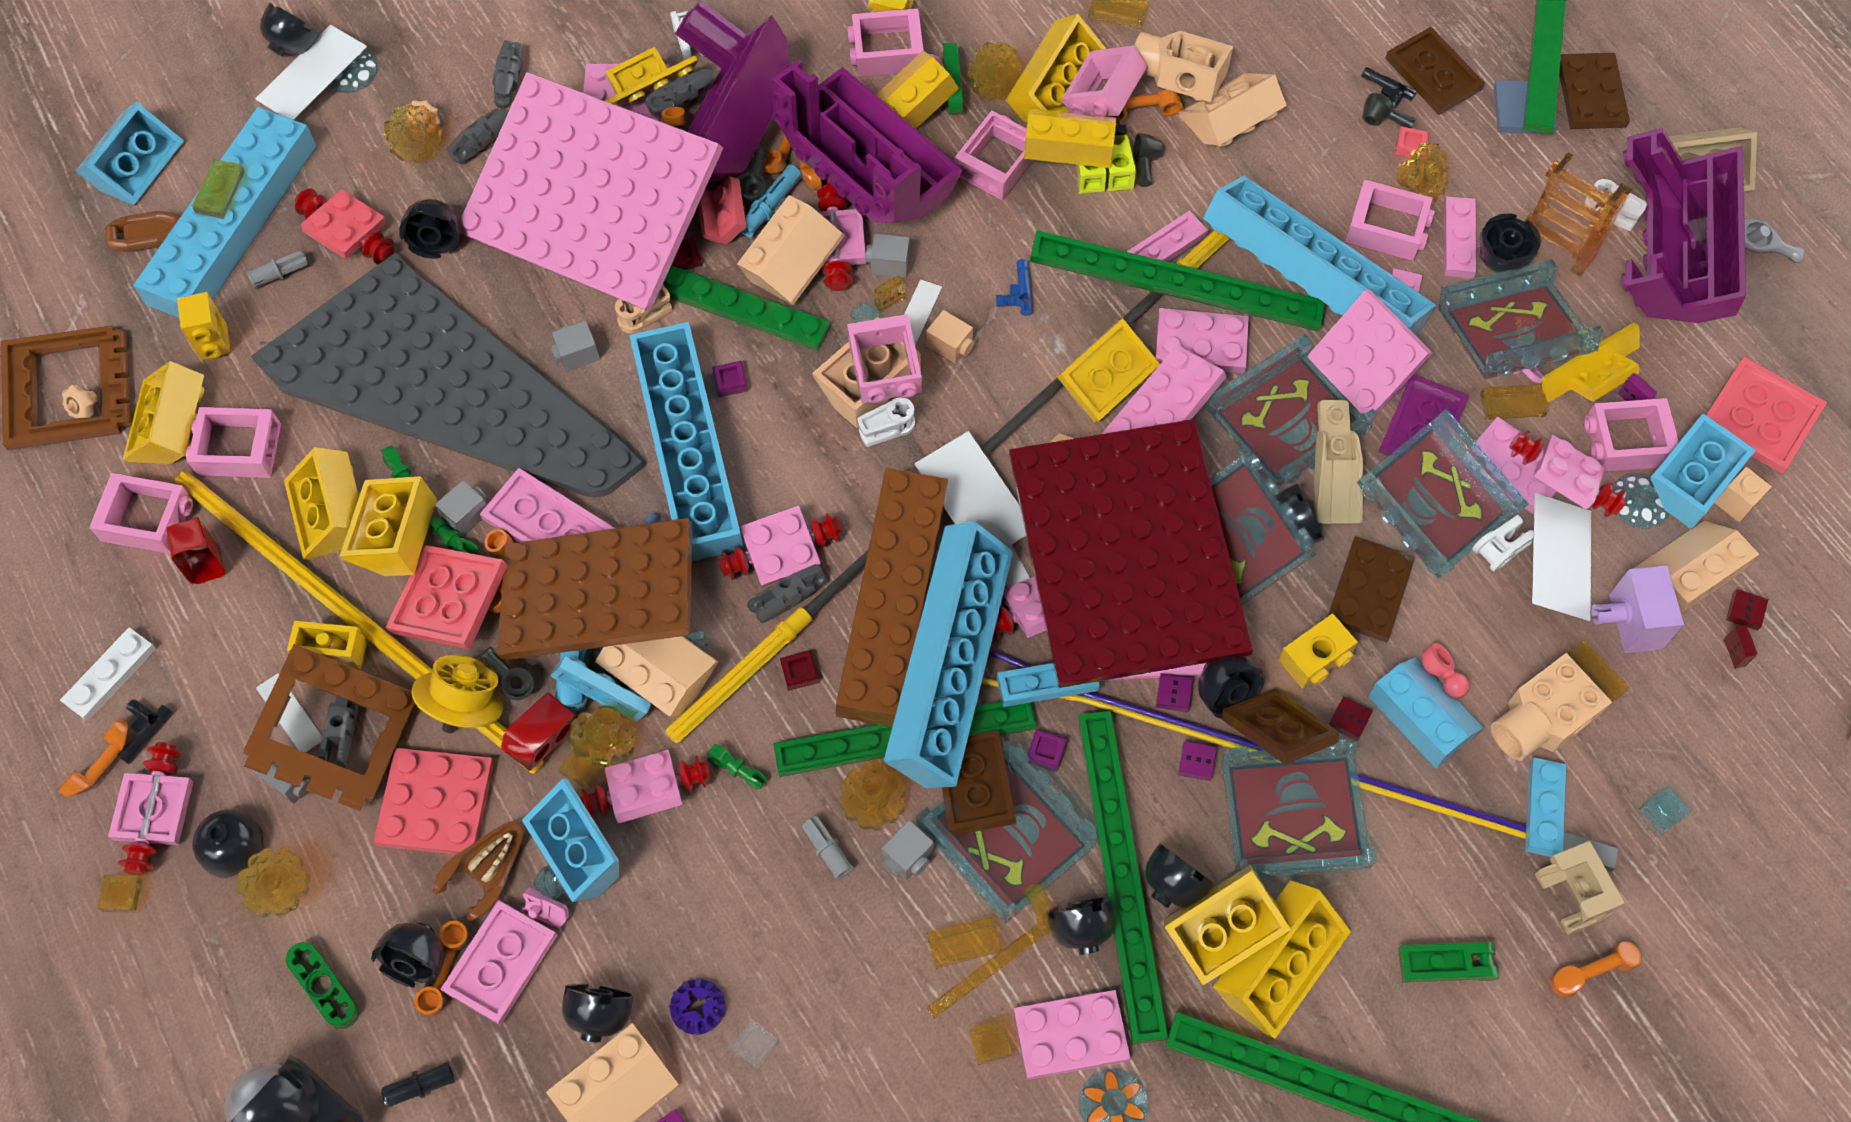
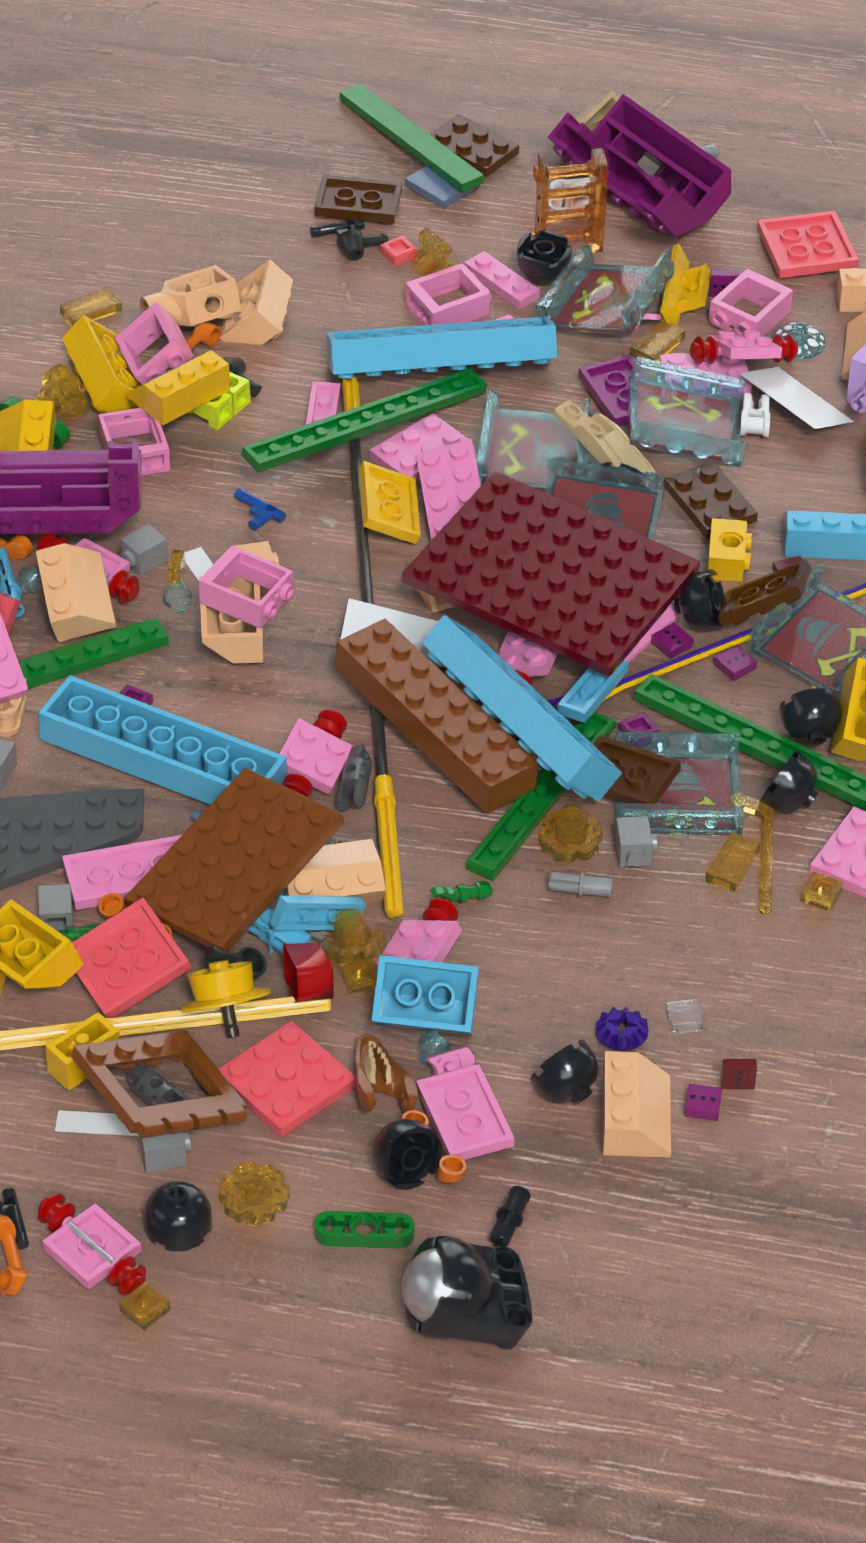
camera: 50 degrees left, 20 degrees down
(799, 670) = (422, 815): dark red tile -> none
(886, 422) = (282, 639): white piece -> none
(1369, 354) = (544, 367): bright pink plate -> none
(1440, 663) = (802, 503): coral plate -> none
(1699, 470) = (817, 292): medium azure slope -> none

